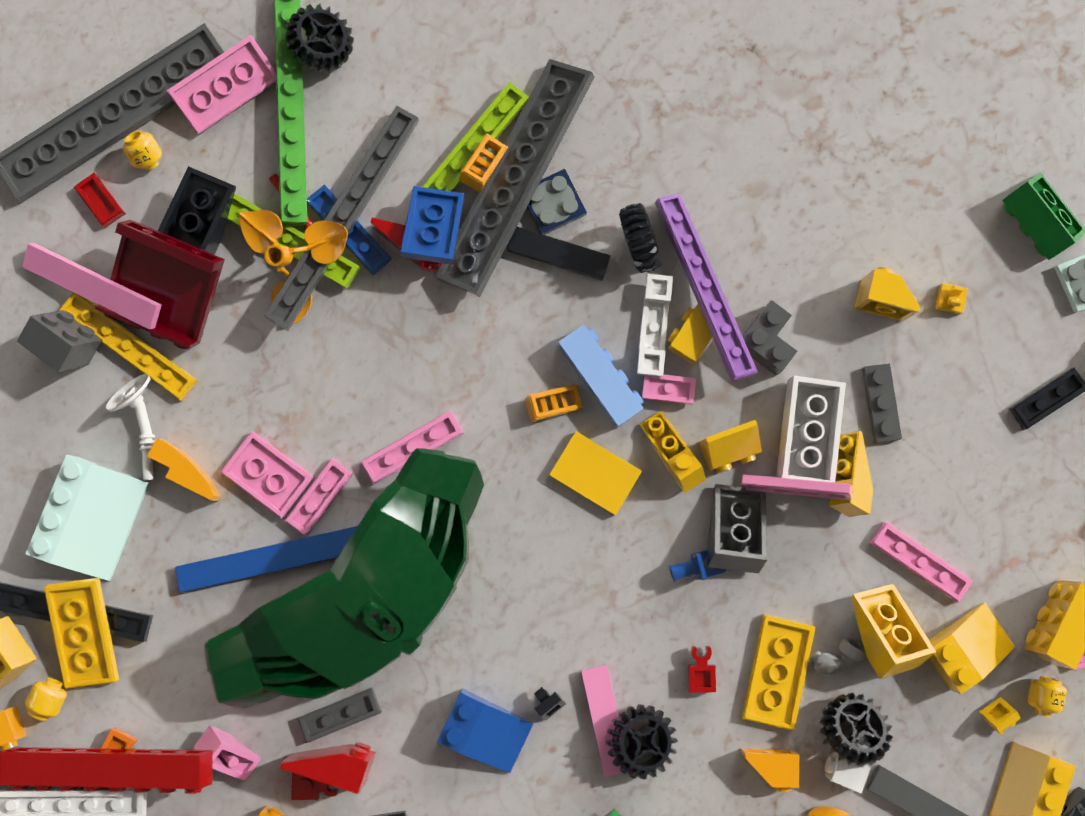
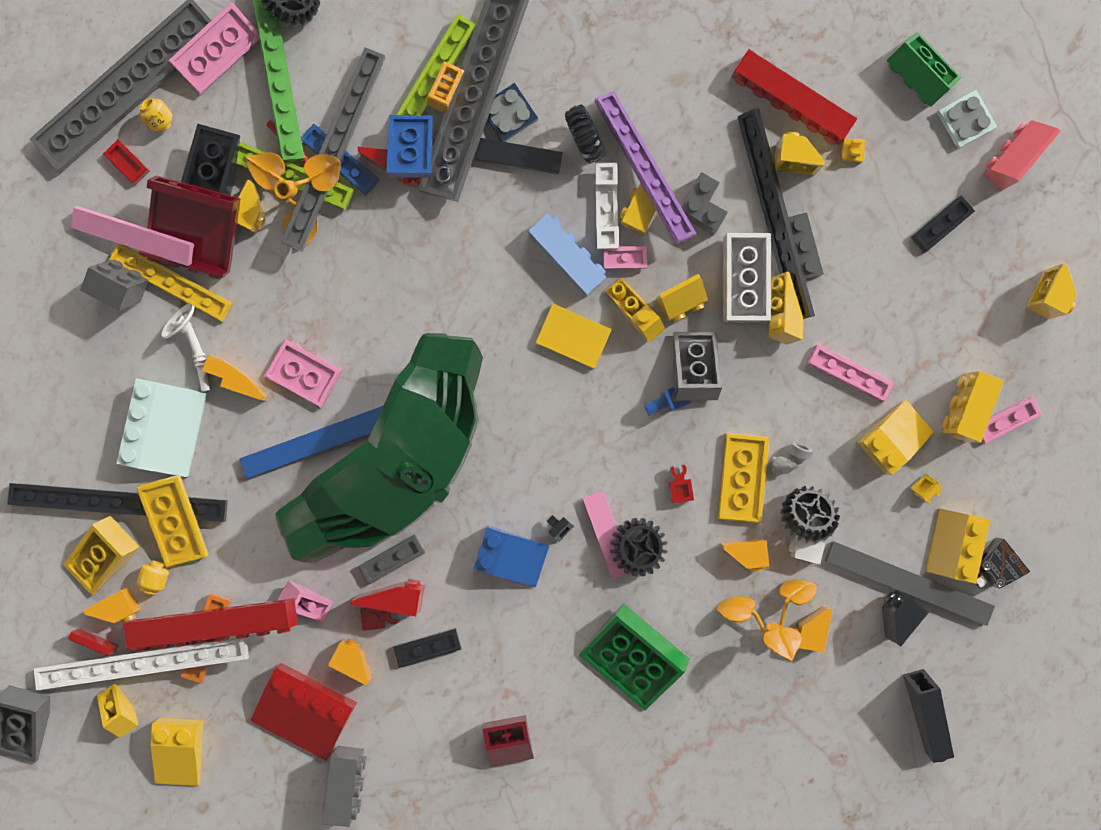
camera: 10 degrees left, 5 degrees up
(236, 272) = (251, 208): none -> yellow slope
(319, 497) = (348, 386): bright pink tile -> none
(395, 455) = (405, 345): bright pink tile -> none
(532, 407) = (517, 295): light orange slope -> none
(798, 487) = (740, 324): bright pink tile -> none
(852, 351) = (774, 205): none -> black plate
(889, 229) = (793, 97): none -> red brick
(890, 632) = (829, 433): yellow slope -> none
(1047, 696) = (962, 467): yellow head -> none

